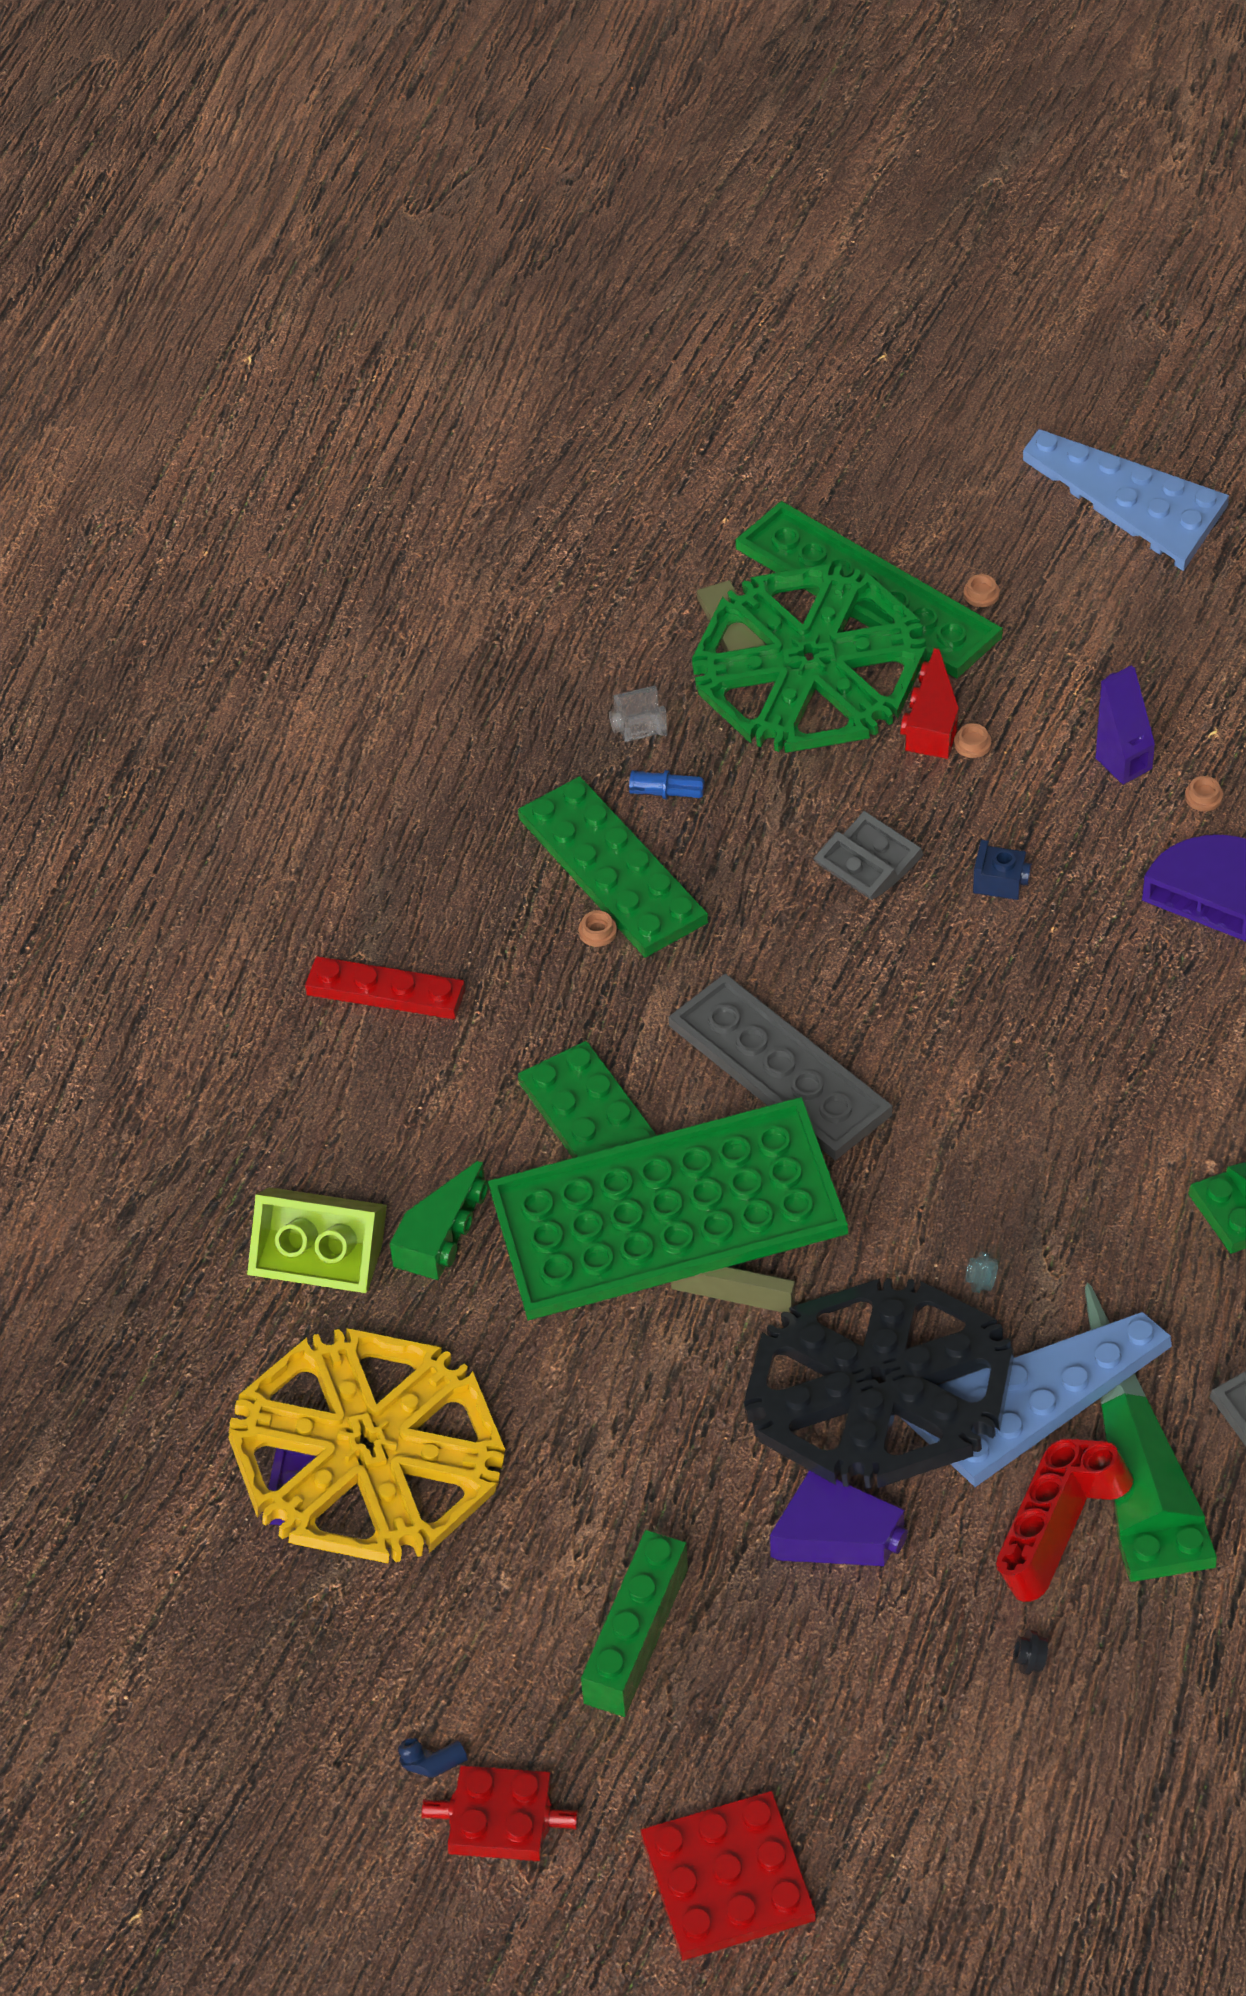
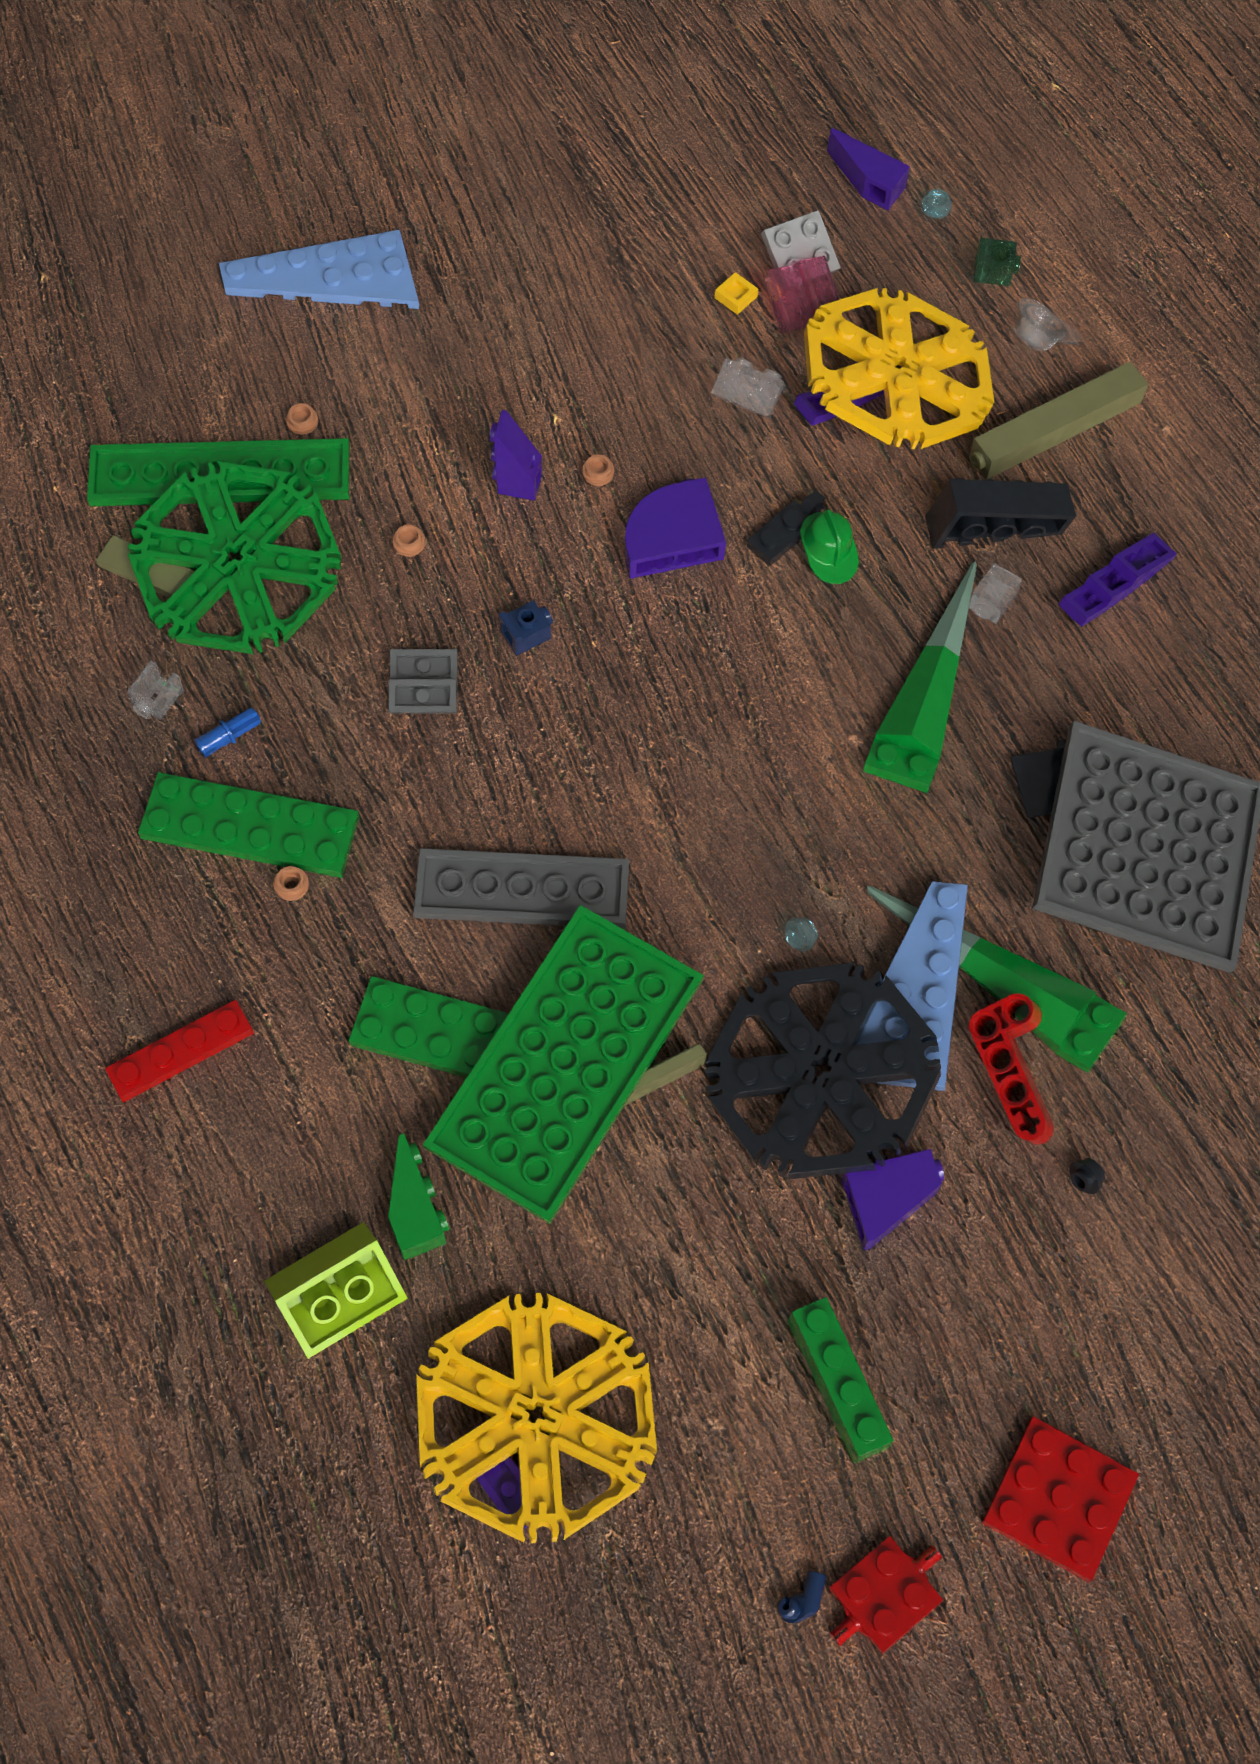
camera: 50 degrees left, 15 degrees up
(934, 712) = (366, 537): red slope -> none

